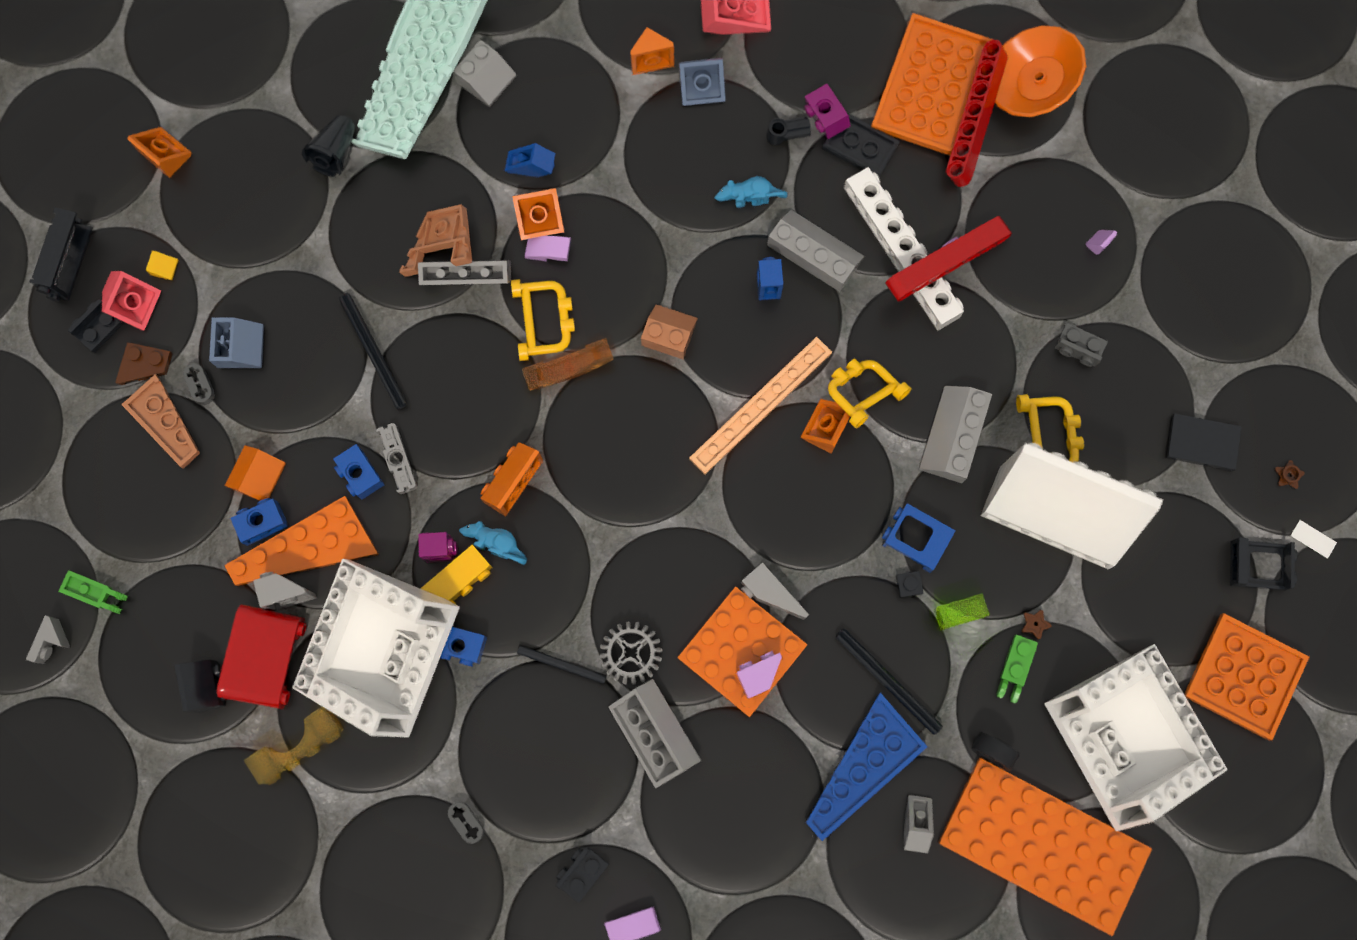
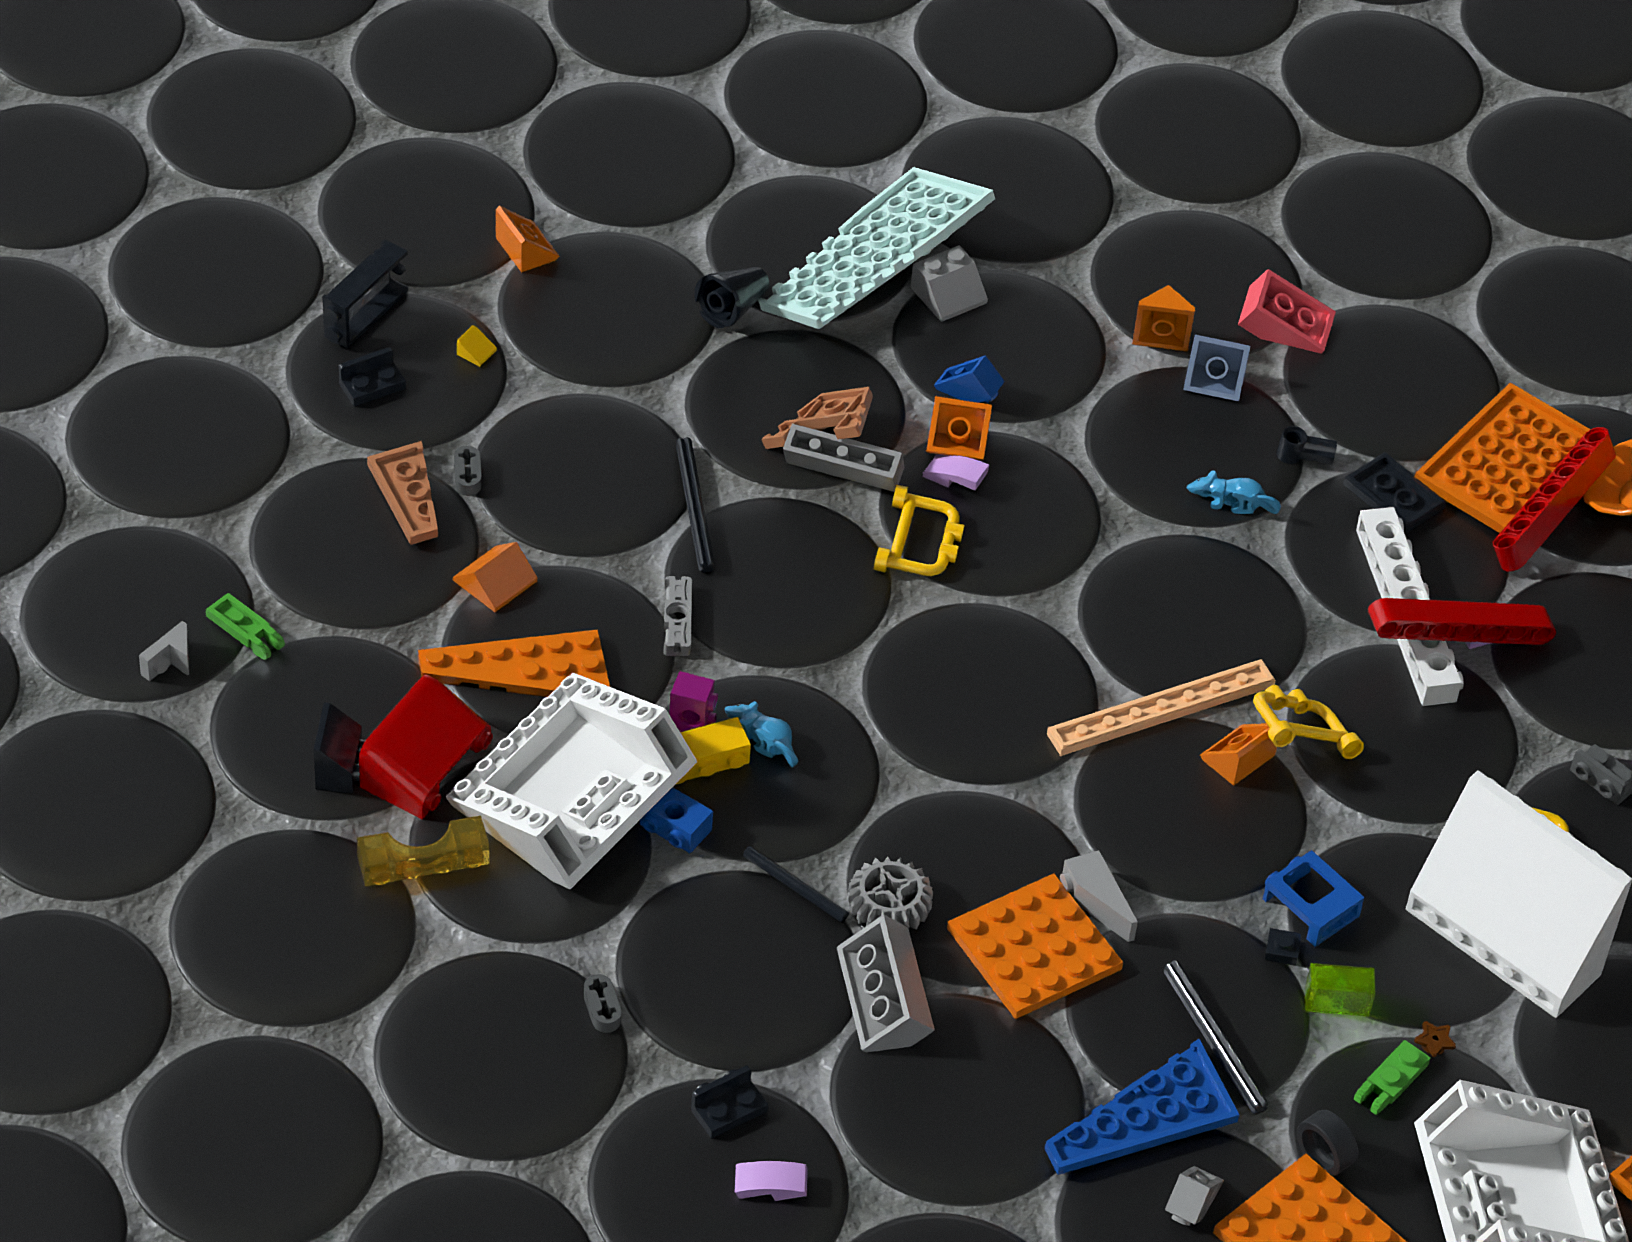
camera: 15 degrees right, 30 degrees down
(129, 299) = (425, 361): coral slope -> none
(142, 363) = (408, 427): reddish brown wing -> none
(236, 343) = (532, 441): sand blue slope -> none
(272, 521) = (481, 620): blue brick -> none
(278, 592) = (485, 687): light grey slope -> none
(369, 479) = (625, 610): blue brick -> none
(511, 478) = (816, 675): orange slope -> none
(568, 366) = (933, 594): clear orange slope -> none
(668, 331) = (1071, 597): nougat slope -> none
(759, 676) = (1048, 960): lavender slope -> none
(769, 278) = (1223, 576): blue brick -> none
(814, 250) = (1291, 574): light grey slope -> none
(825, 100) = (1362, 441): magenta brick -> none
(955, 432) = (1406, 809): light grey slope -> none

